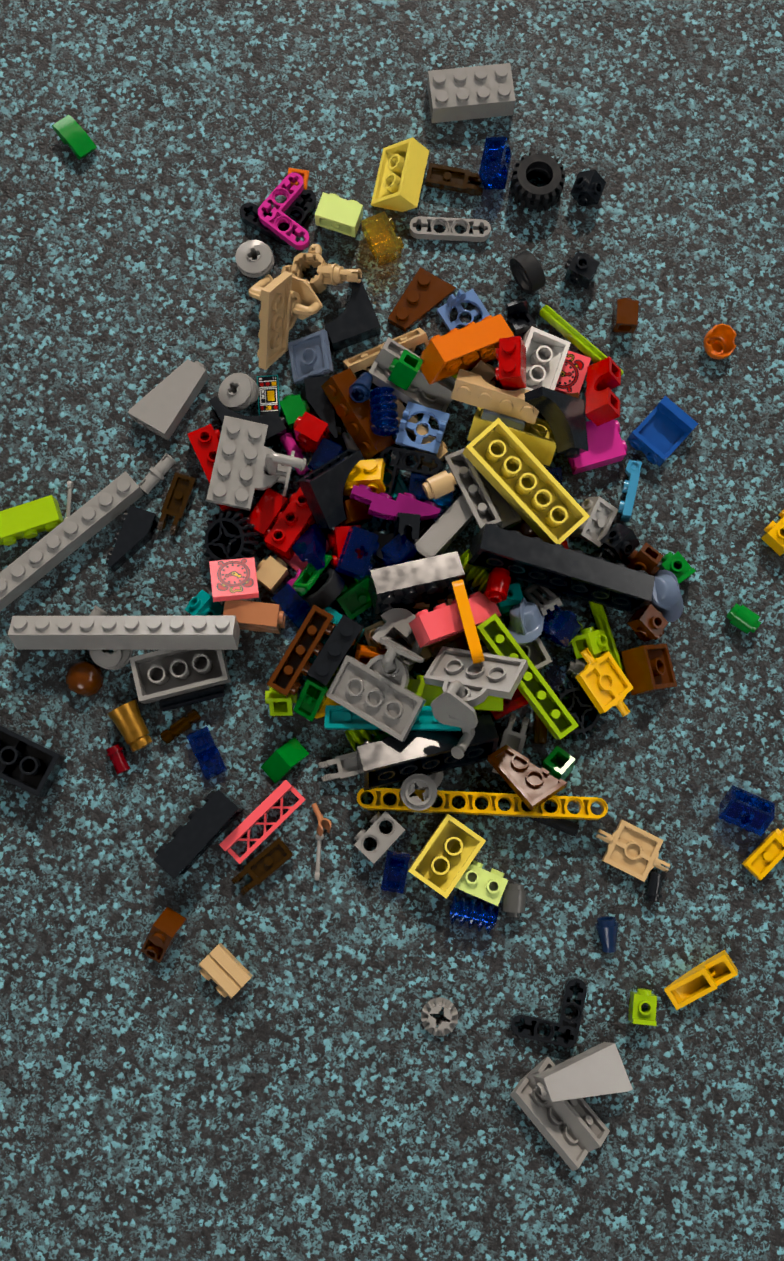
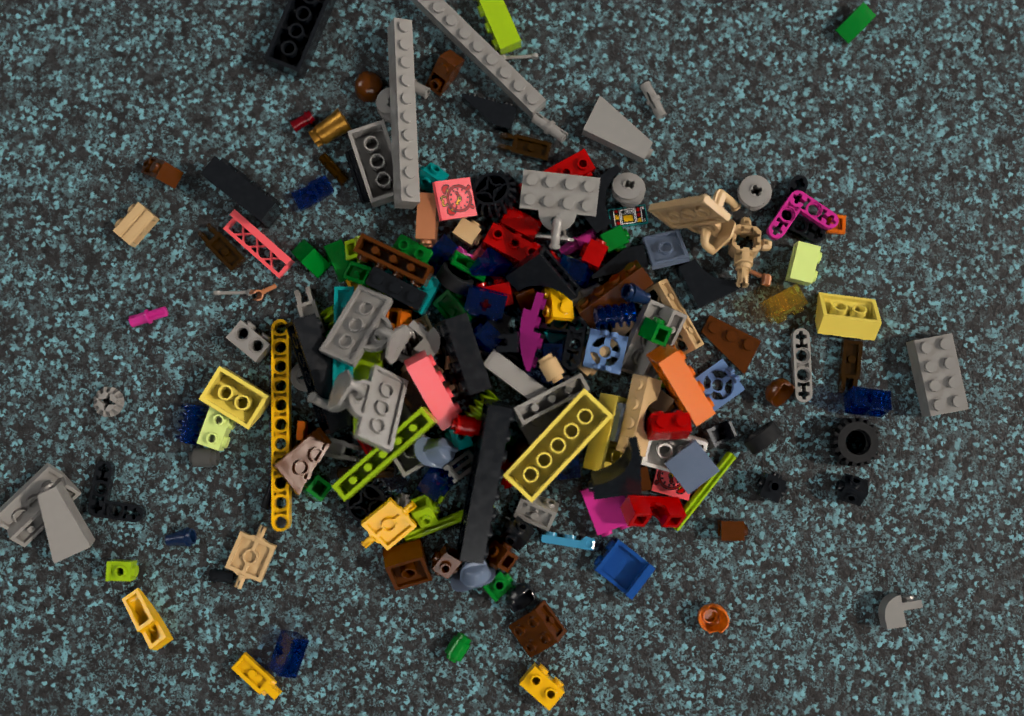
camera: 90 degrees right, 5 degrees up
(78, 587) = (444, 72): none -> reddish brown slope
(147, 354) = (653, 100): none -> light grey pin
(286, 634) = (413, 249): none -> green bracket
(286, 727) = (336, 255): none -> green slope
(339, 961) = (147, 316): none -> dark pink axle
(352, 256) = (765, 278): none -> nougat hand
(395, 871) = (222, 356): clear blue slope -> none
(421, 781) = (275, 368): light grey gear -> none
(468, 621) = (425, 399): light orange beam -> none
(477, 253) = (778, 391): none -> reddish brown hair
(489, 780) = (302, 430): none -> orange tile
(556, 345) = (691, 466): none -> sand blue tile
(689, 545) = (520, 596): none -> black hair
(714, 161) = (892, 609): none -> light grey brick
(726, 529) = (538, 629): none -> reddish brown bracket

